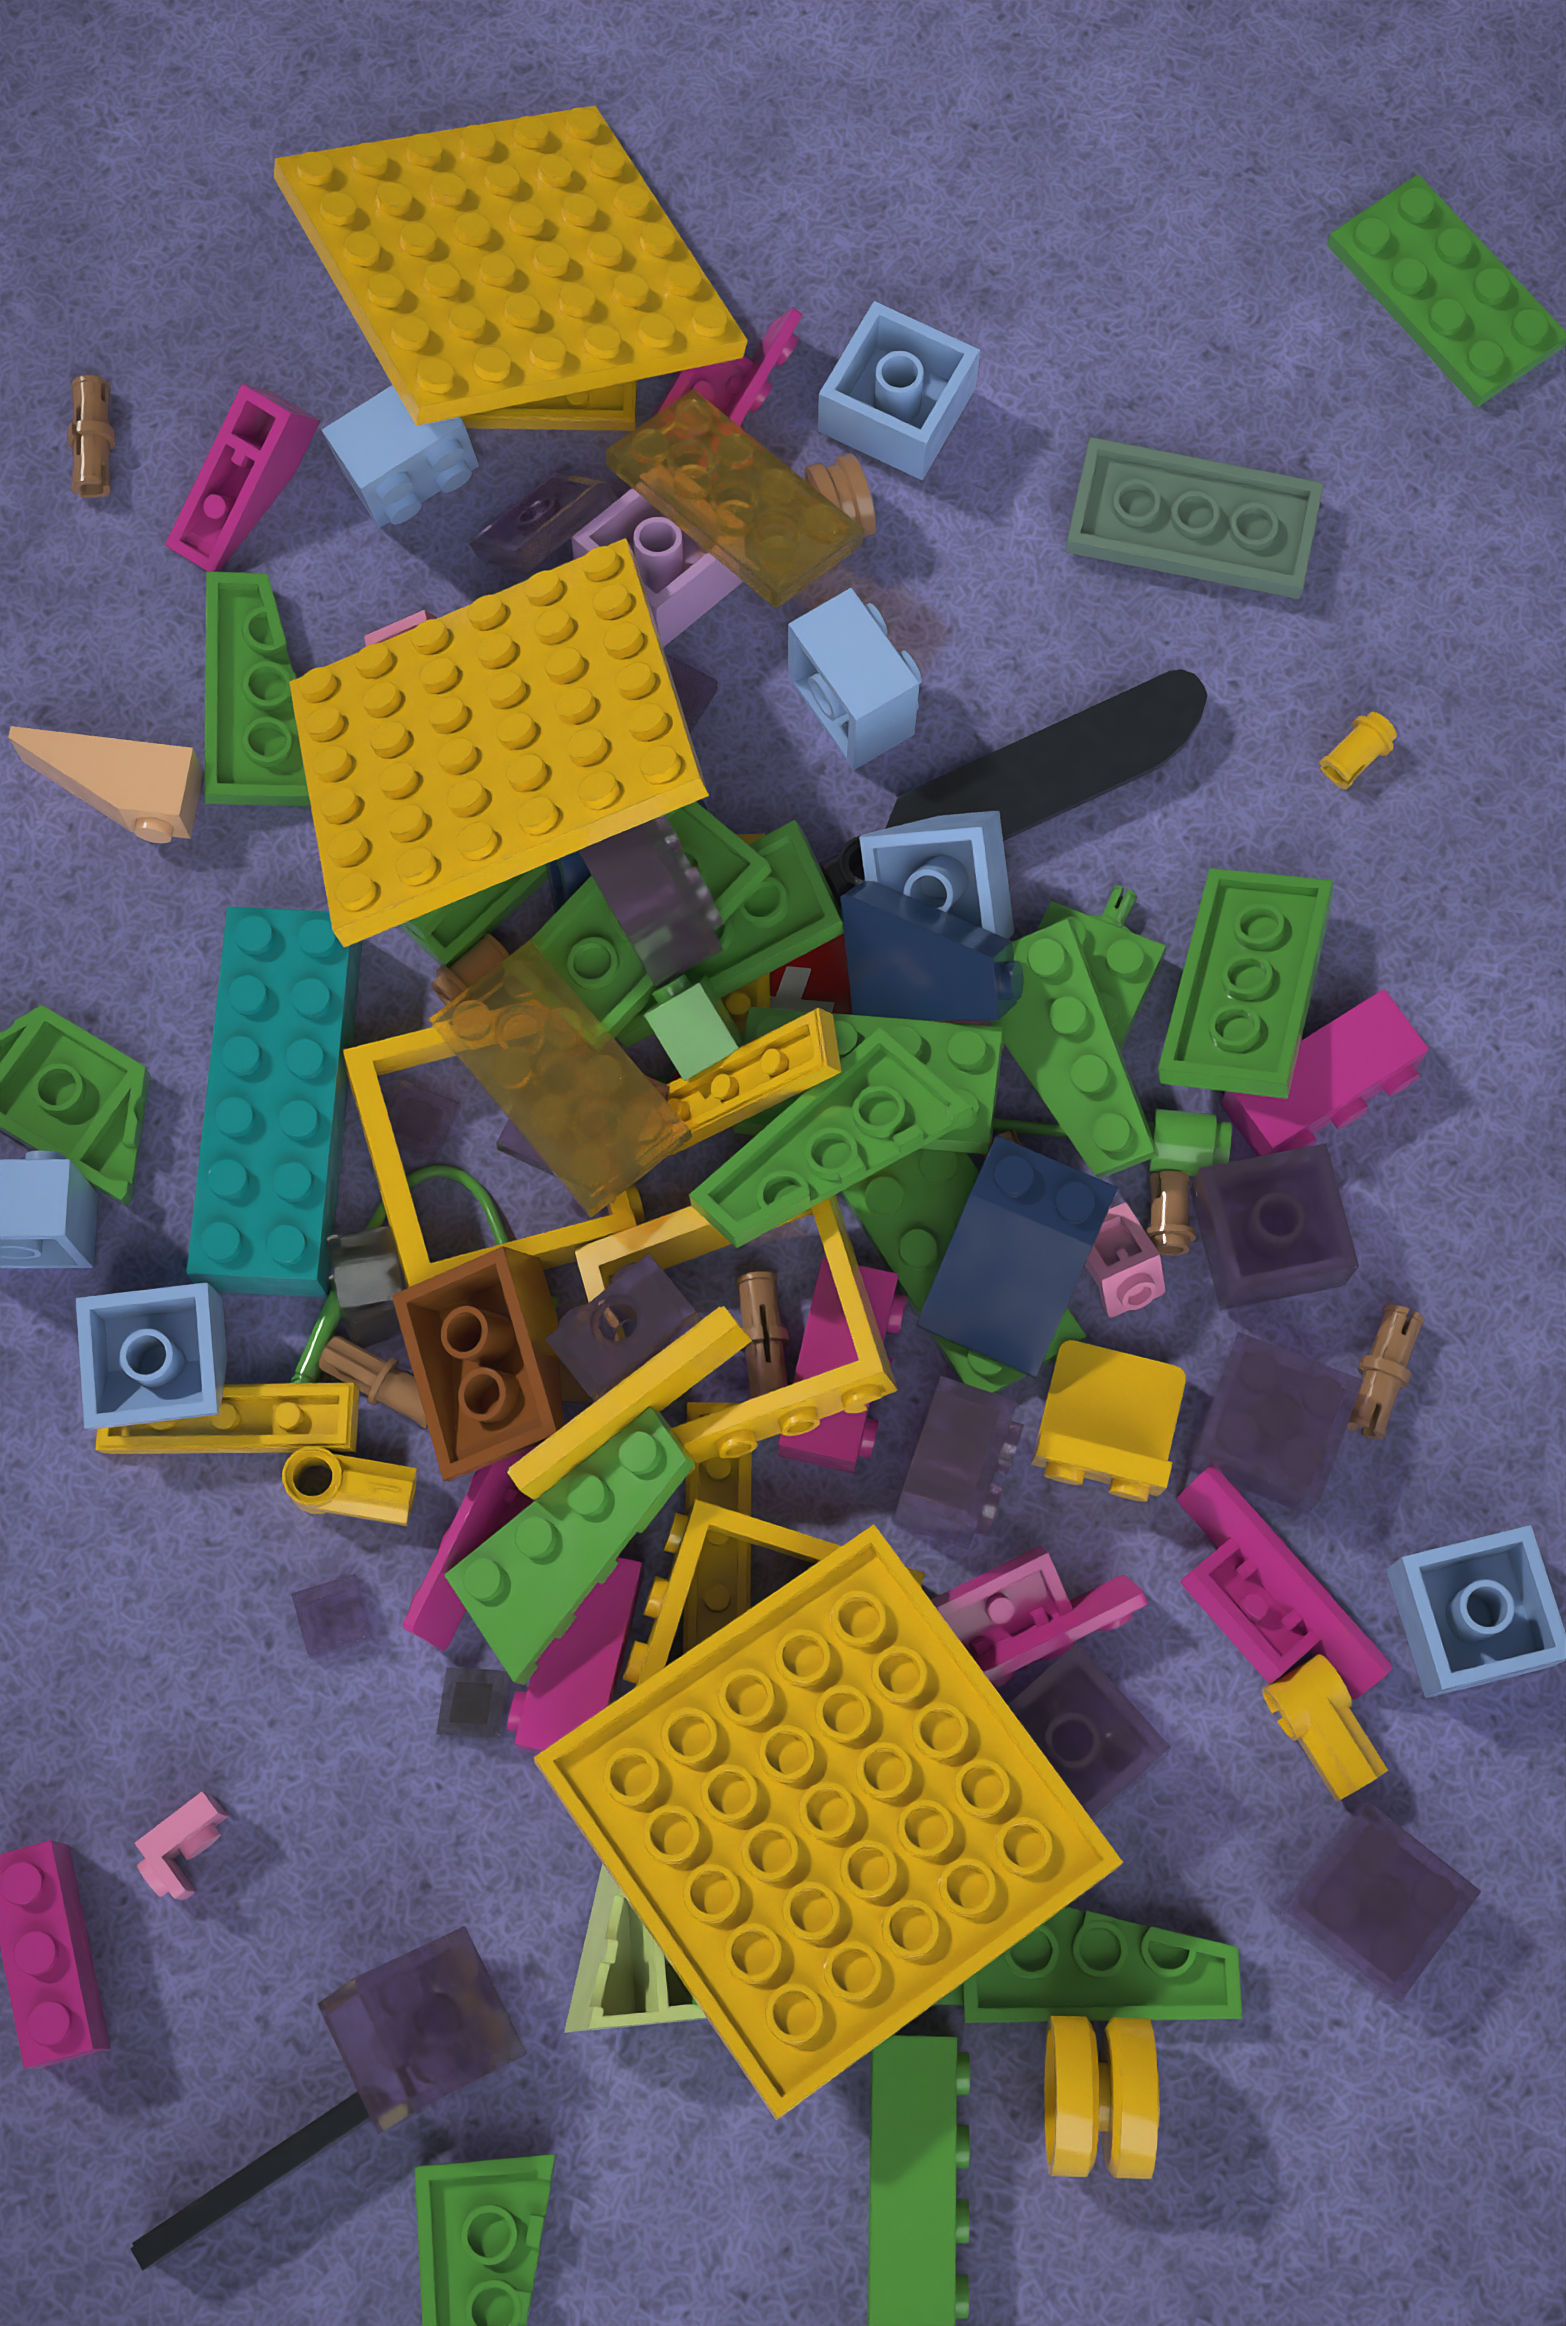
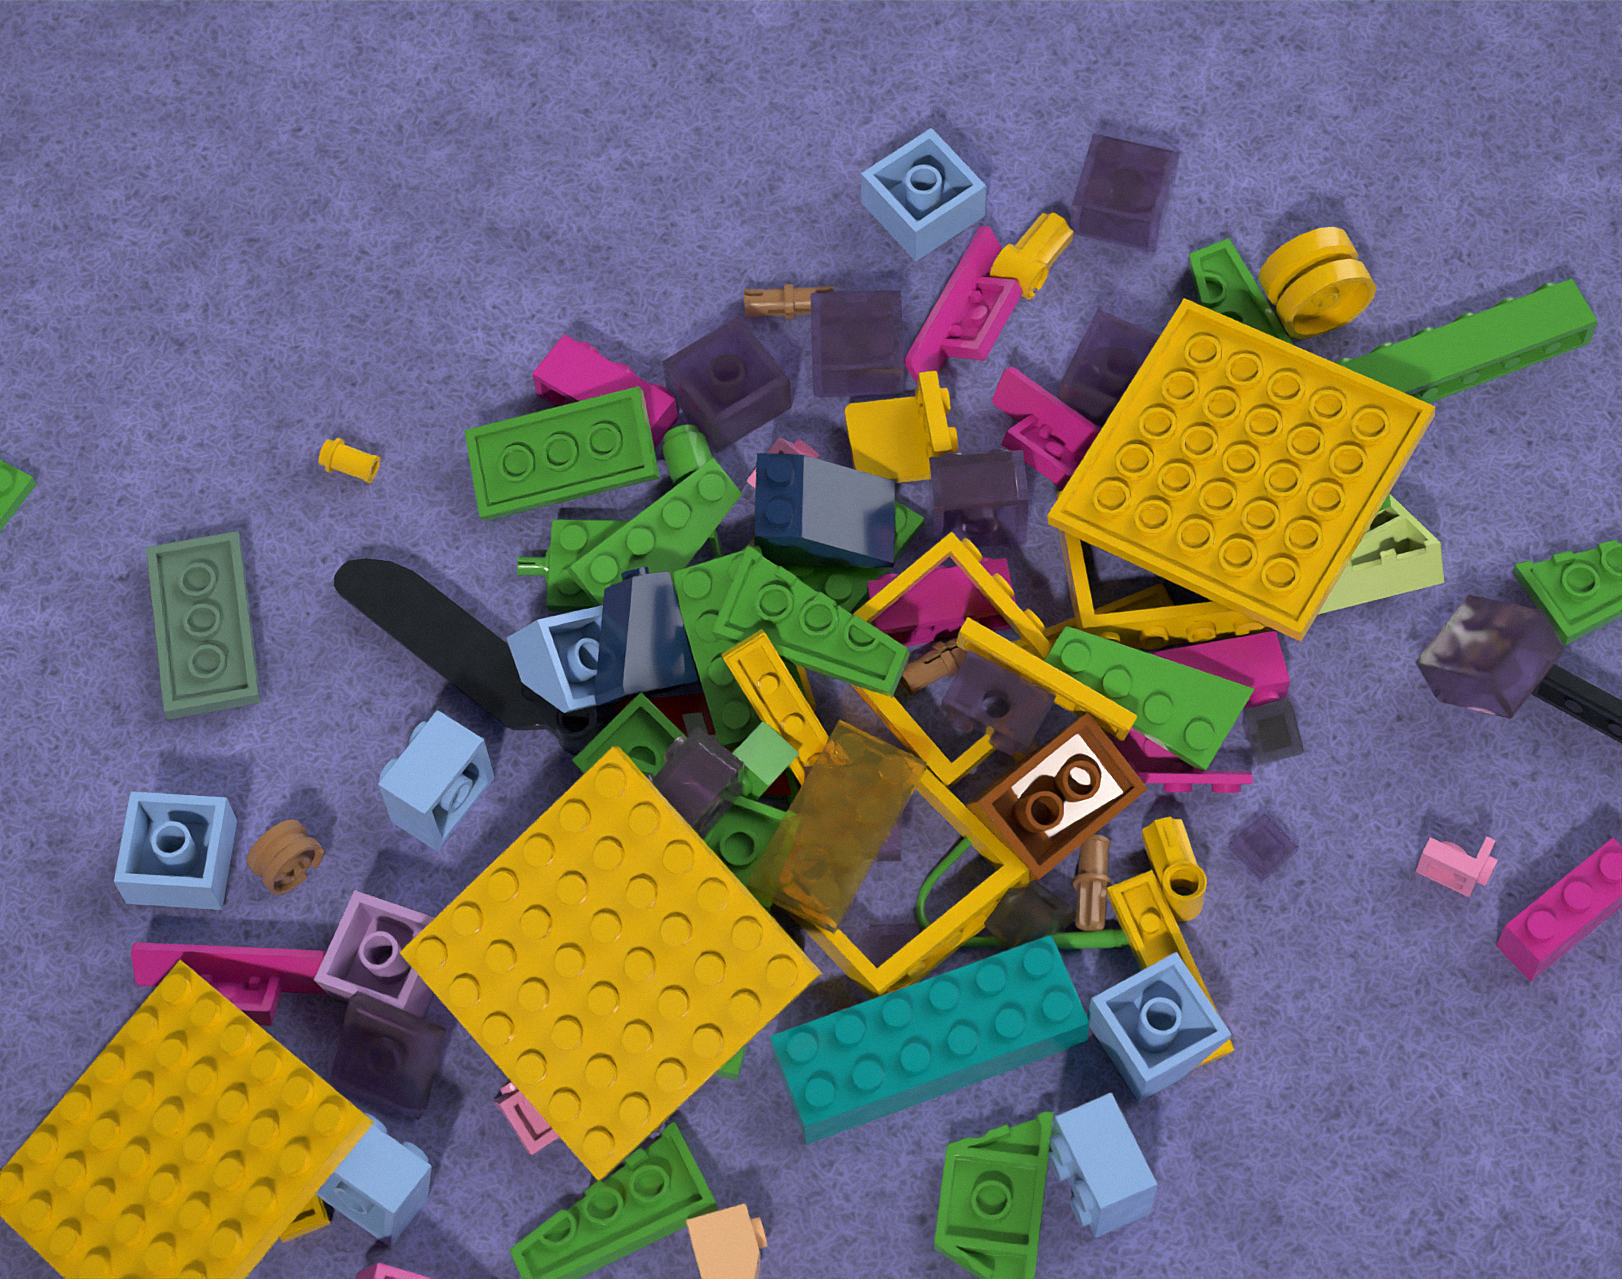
camera: 110 degrees left, 10 degrees down
(734, 498) = (324, 909): clear yellow plate -> none
(1170, 1213) = (740, 454): medium nougat pin -> none

